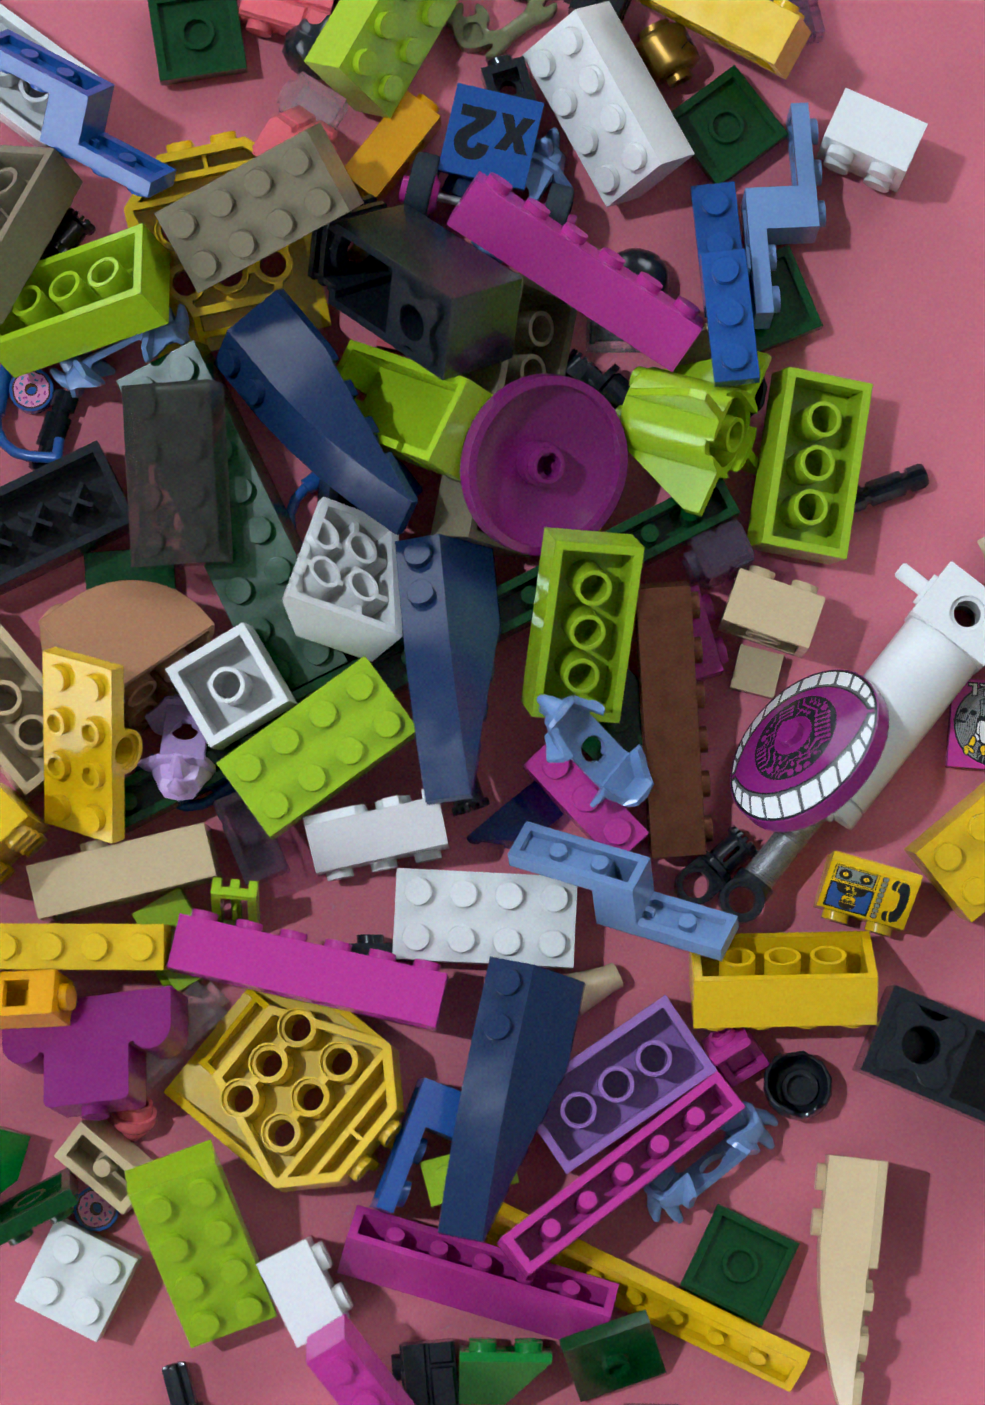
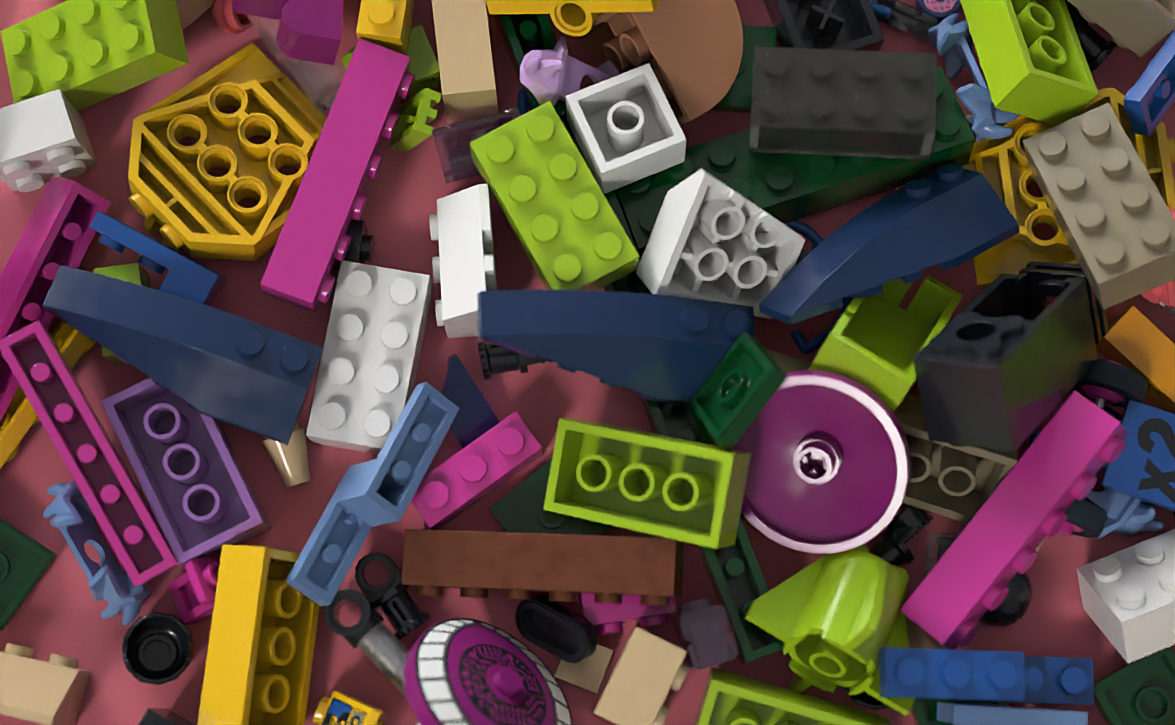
camera: 90 degrees right, 5 degrees down
(488, 545) = (737, 390): none -> dark green plate
(618, 774) = (489, 503): medium blue piece -> none
(729, 700) = (556, 629): none -> black tile

